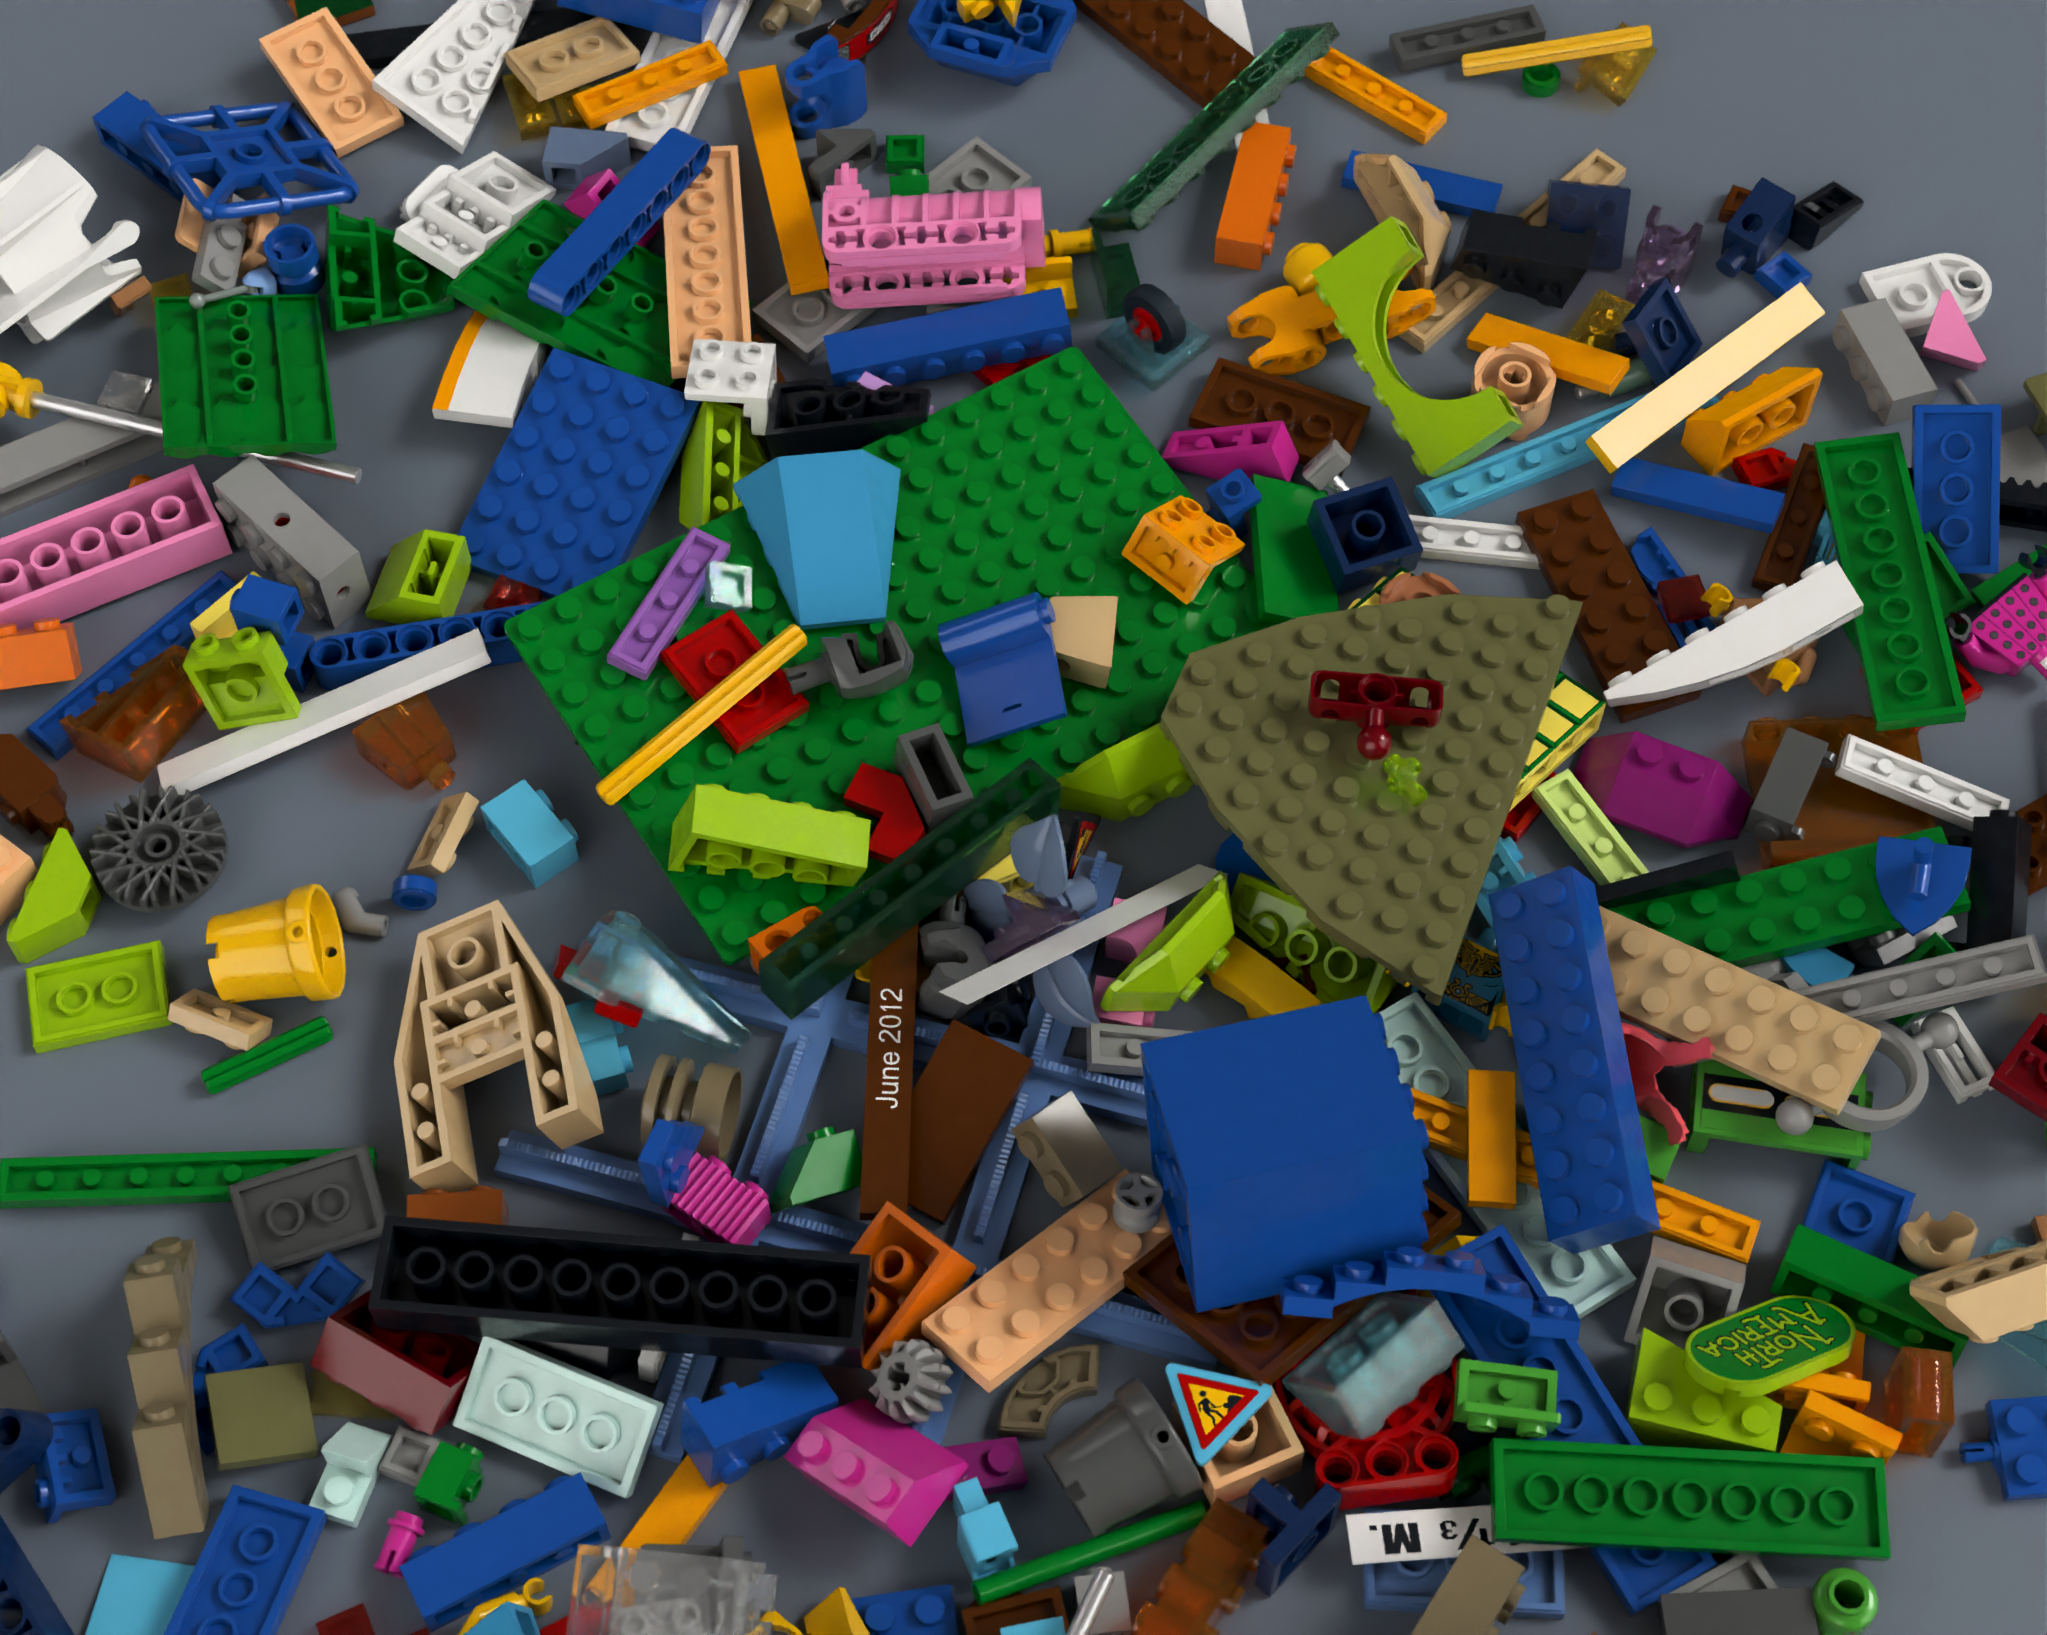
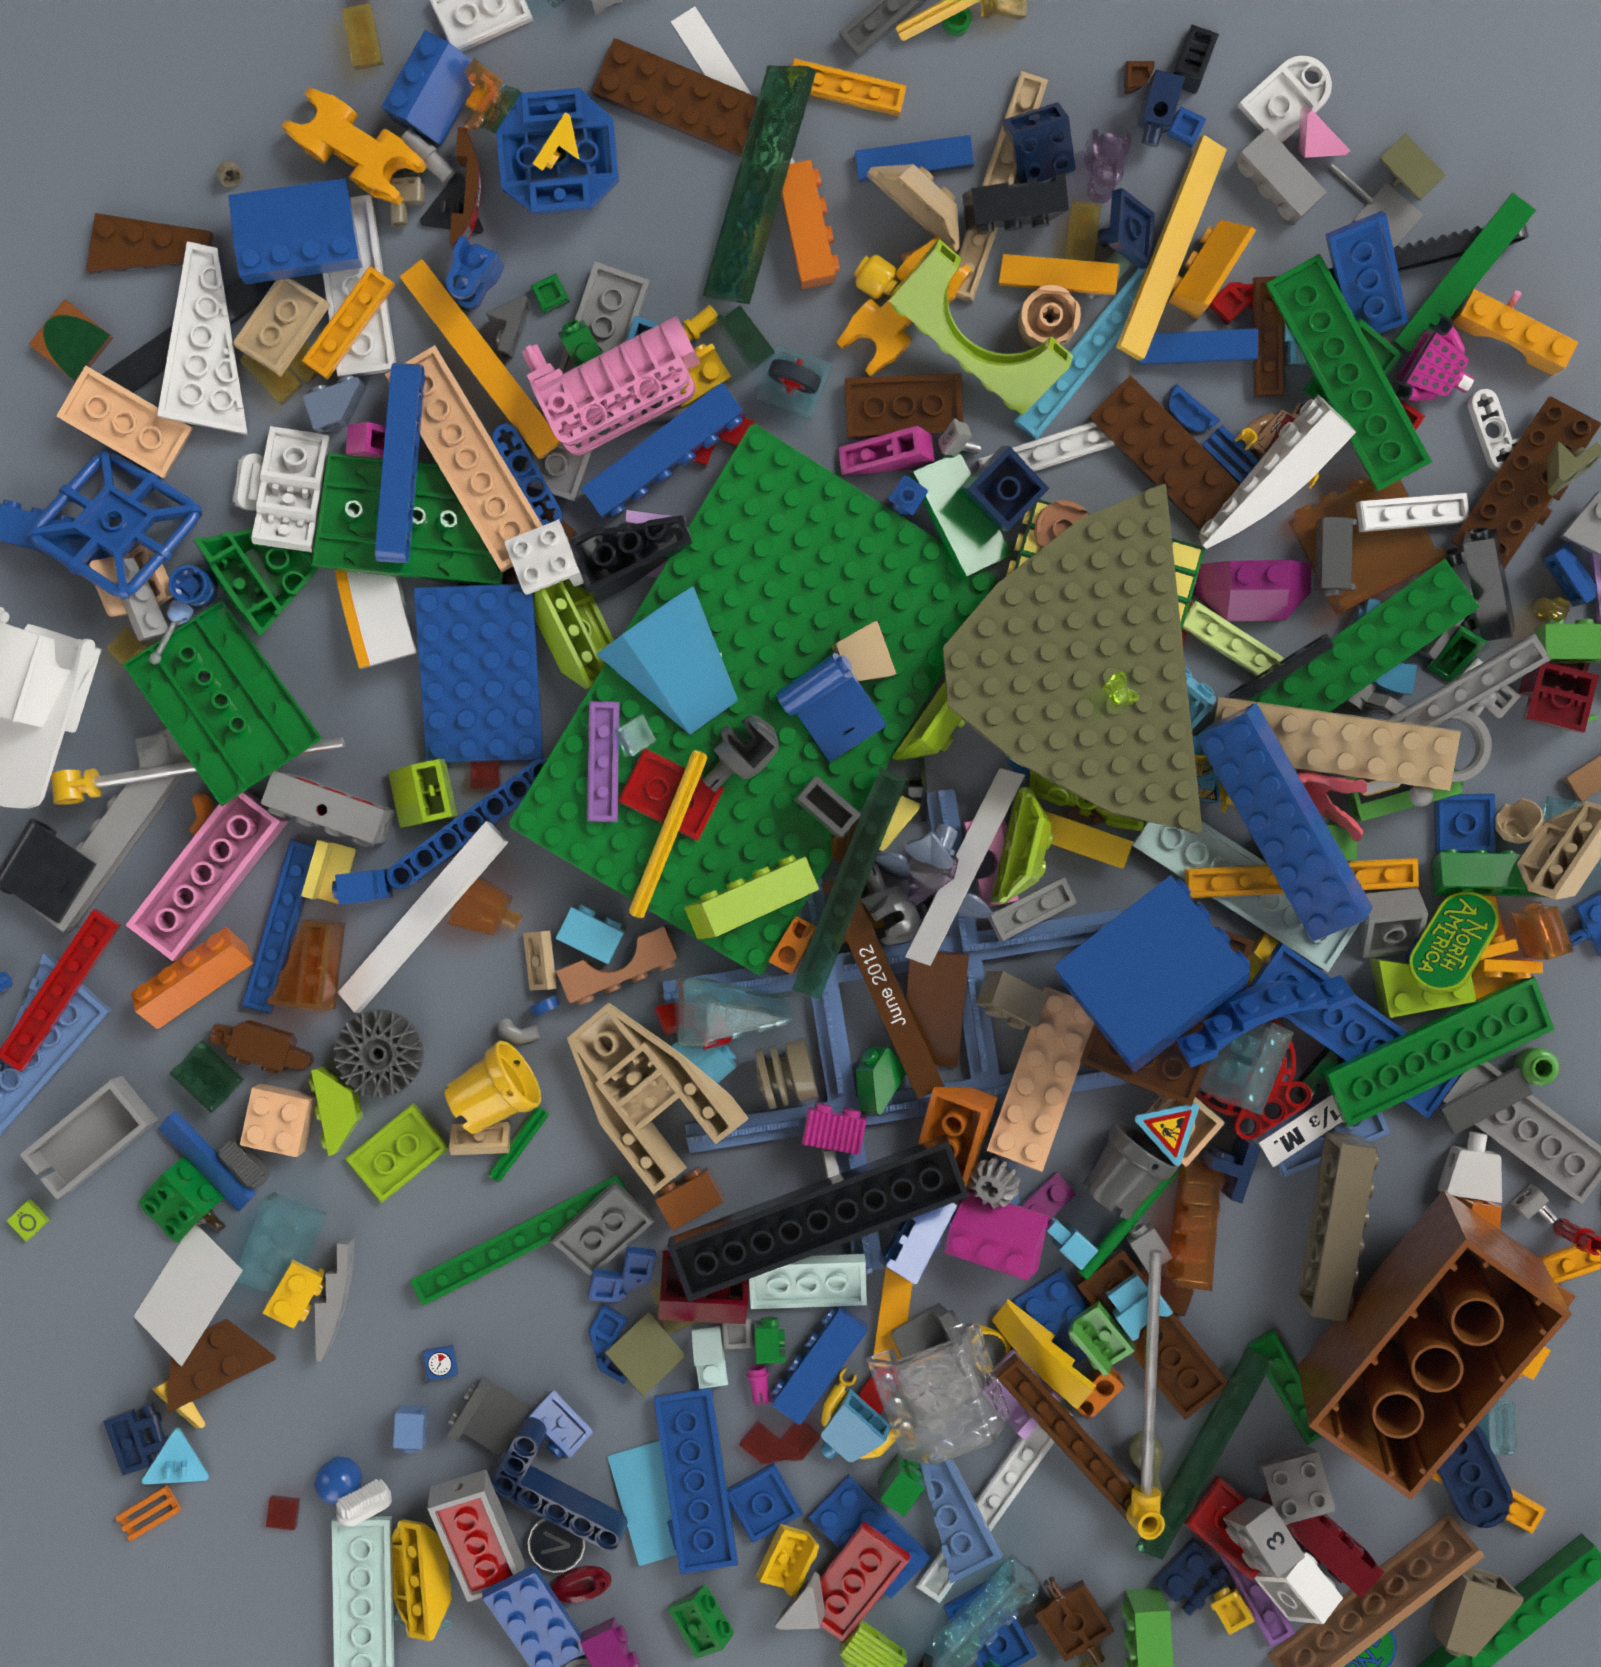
camera: 25 degrees left, 30 degrees up
(123, 300) = (103, 664): medium nougat tile -> none
(161, 1371) = (584, 1369): dark tan arch -> none
(241, 678) = (362, 927): lime plate -> none
(588, 892) = (584, 979): none -> nougat arch
(667, 1158) = (806, 1138): blue wing -> none
(766, 303) = (530, 475): none -> blue beam
(886, 798) = (803, 827): red tile -> none
(1047, 1388) = (1071, 1123): dark tan tile -> none
(1143, 1191) = (1073, 1013): light grey wheel -> none
(1180, 546) = (895, 551): light orange bracket -> none
(1374, 704) = (1064, 650): dark red piece -> none
(1491, 1139) = (1251, 883): light orange tile -> none
(1506, 1397) = (1326, 1049): bright green bracket -> none
(1682, 599) = (1219, 436): clear red tile -> none
(1920, 879) = (1446, 606): blue shield -> none

